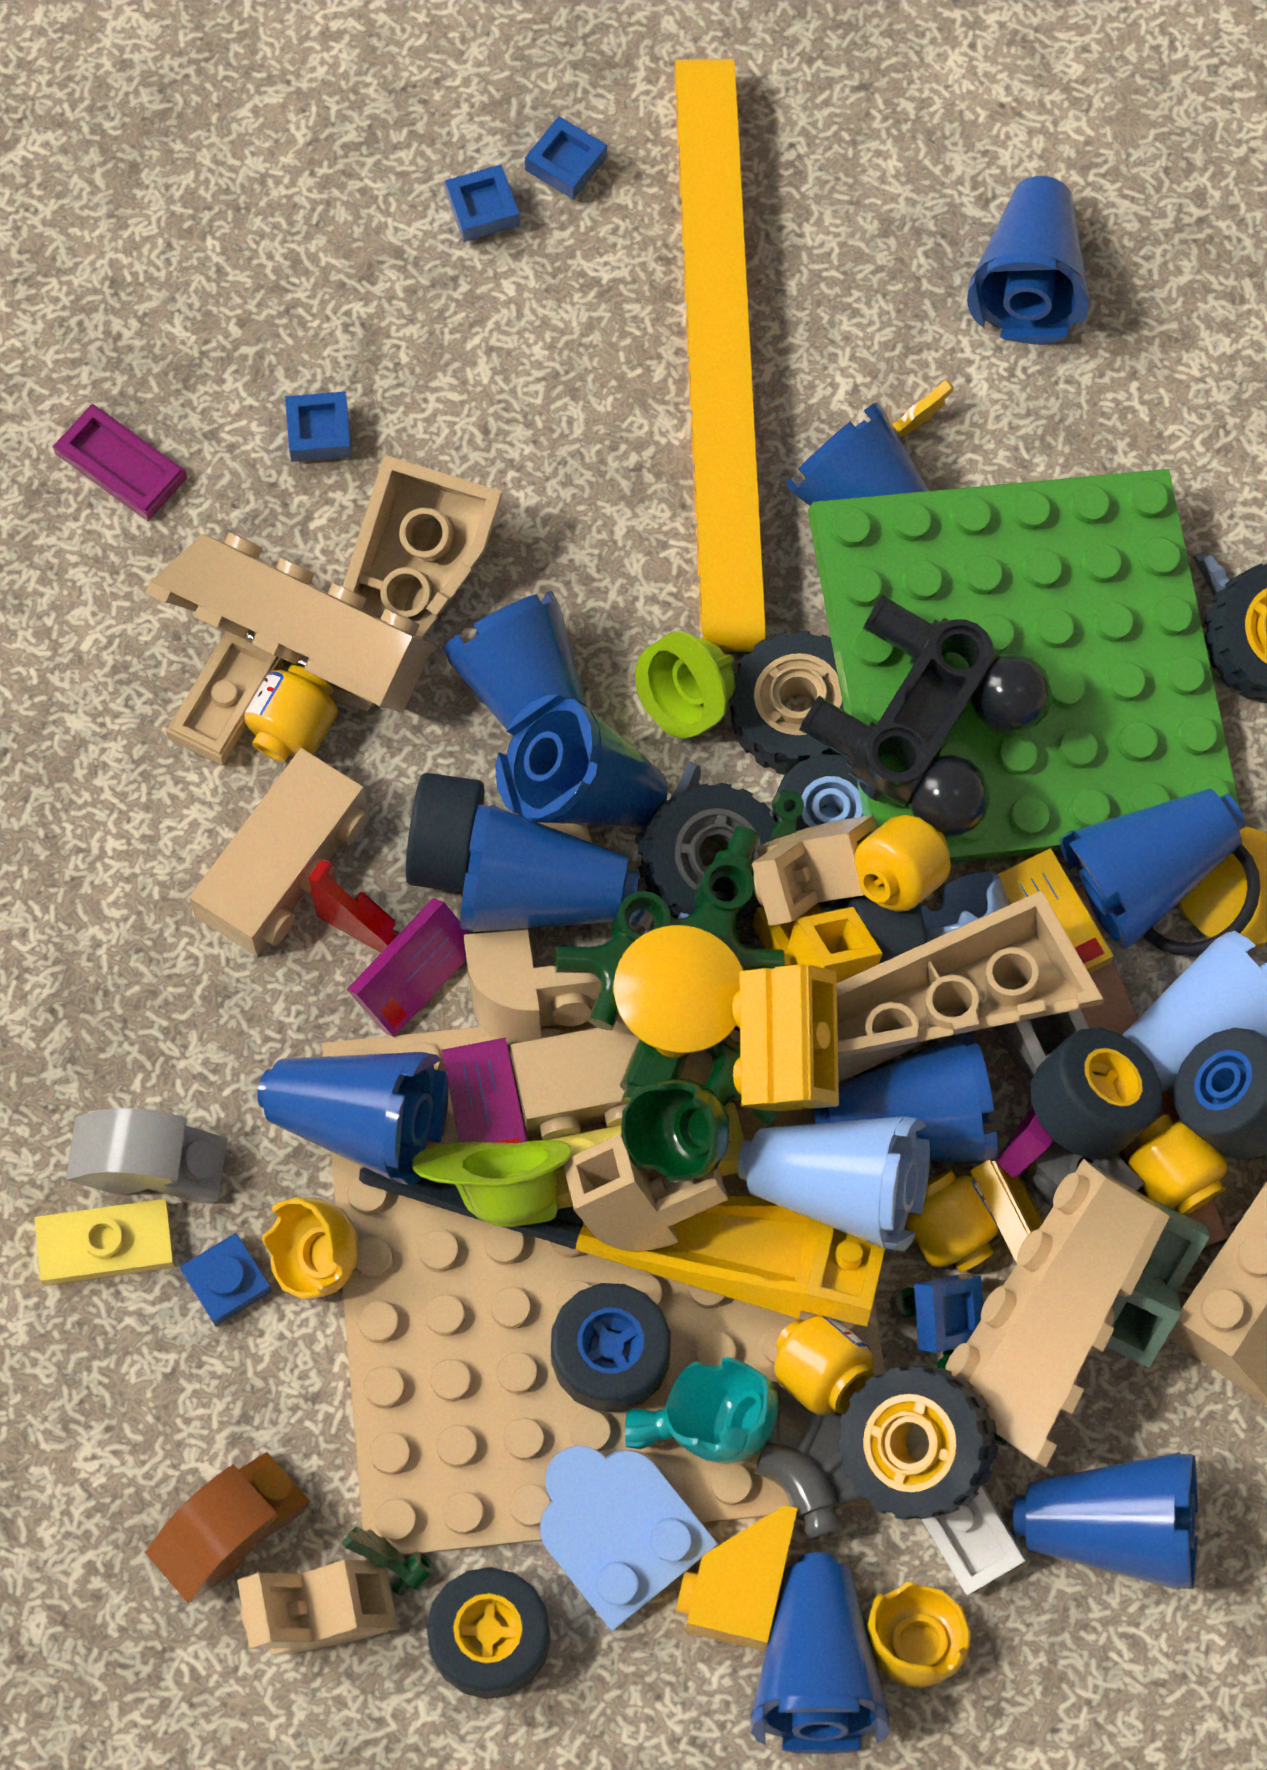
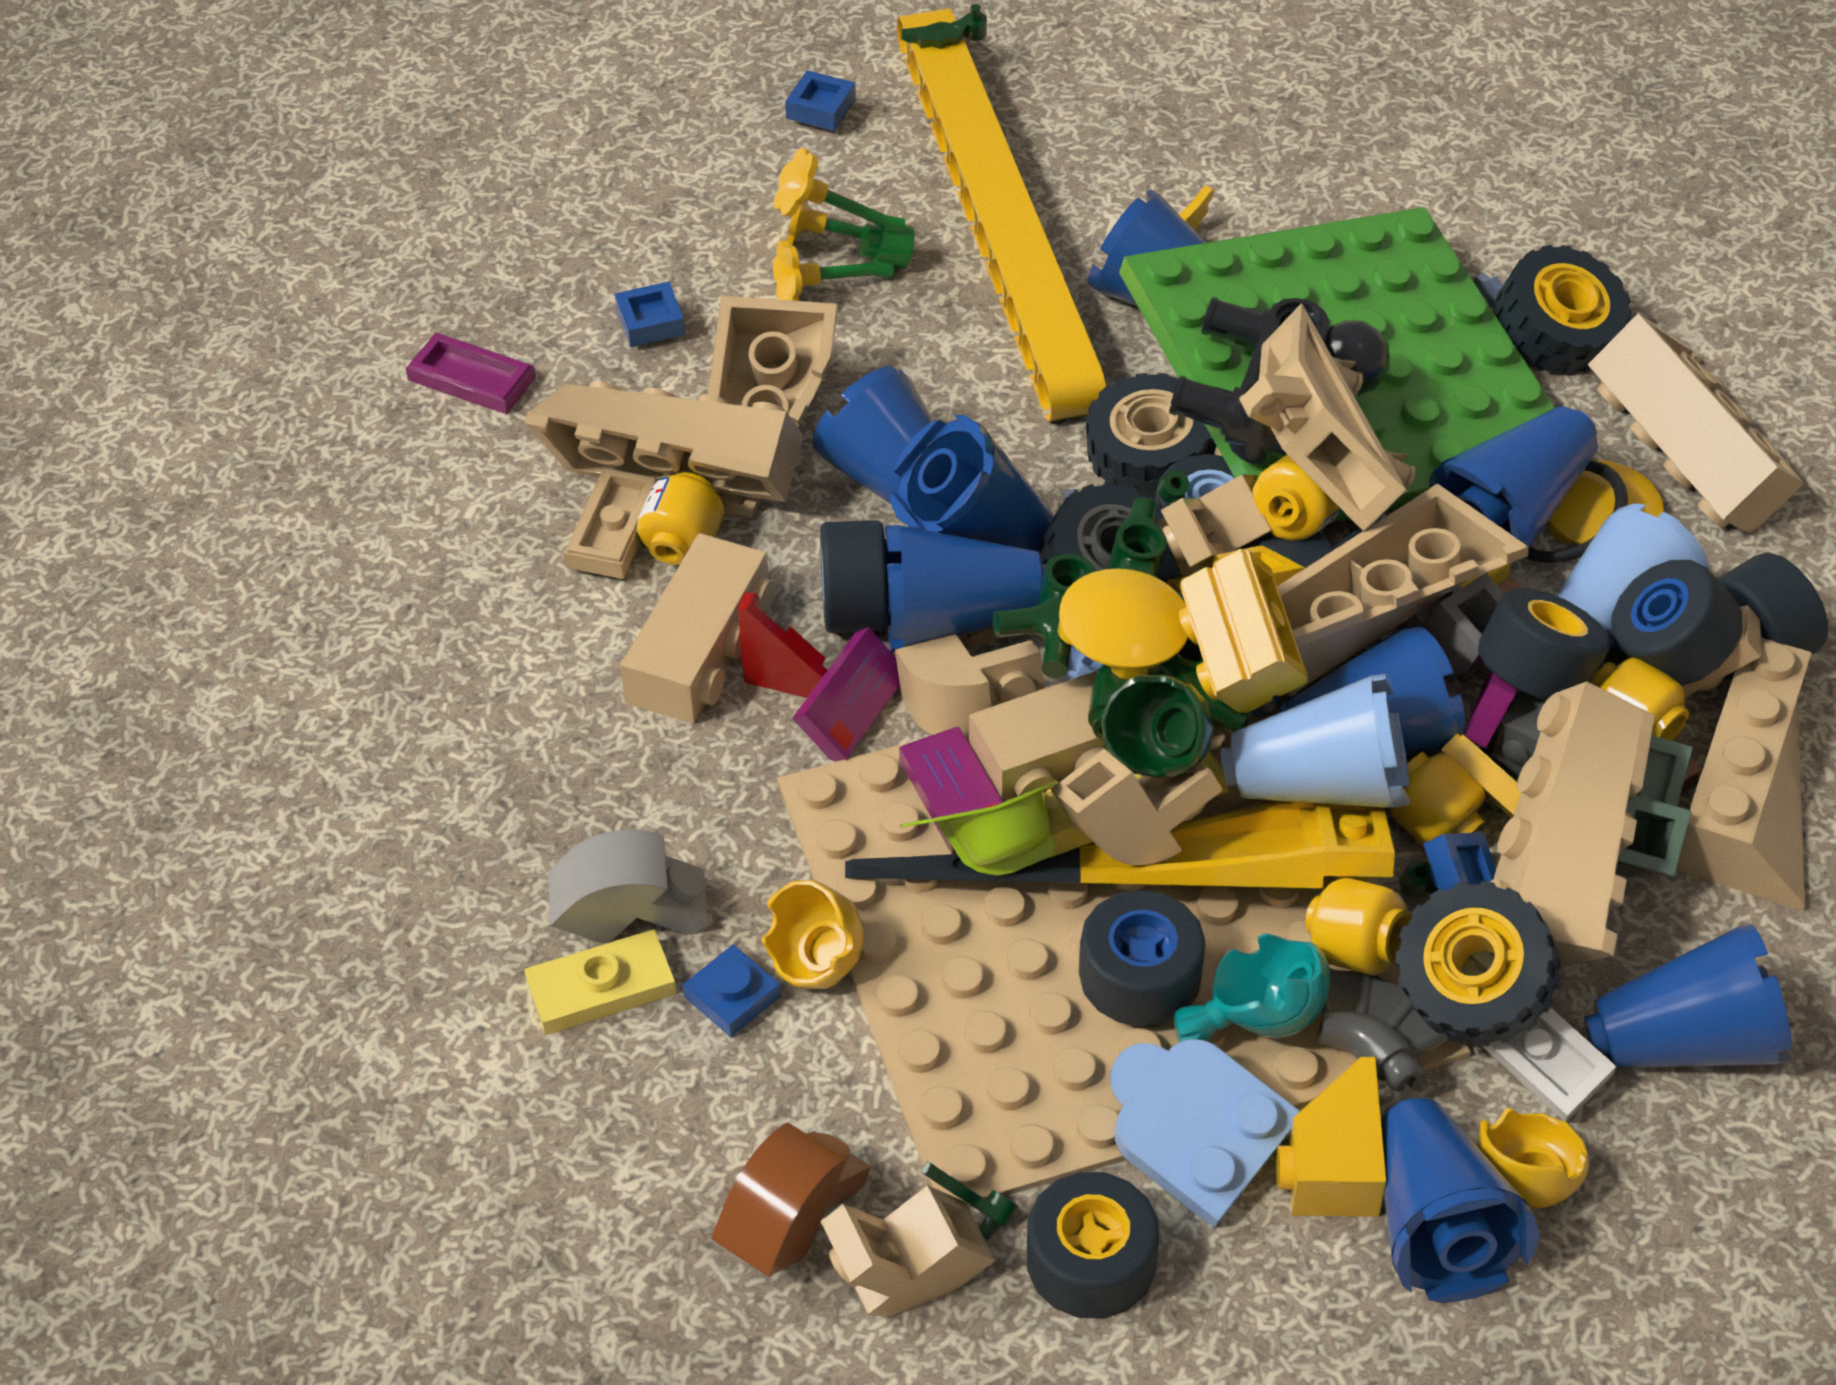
camera: 10 degrees left, 20 degrees down
(361, 1106) = (833, 796): blue cone -> none
(482, 203) = (755, 141): blue plate -> none
(582, 380) = (886, 242): none -> plant
(684, 683) = (1045, 423): lime piece -> none
(721, 105) = (940, 34): none -> dark green piece
(931, 801) = (1320, 424): none -> tan connector
(1032, 267) = (1255, 106): blue cone -> none

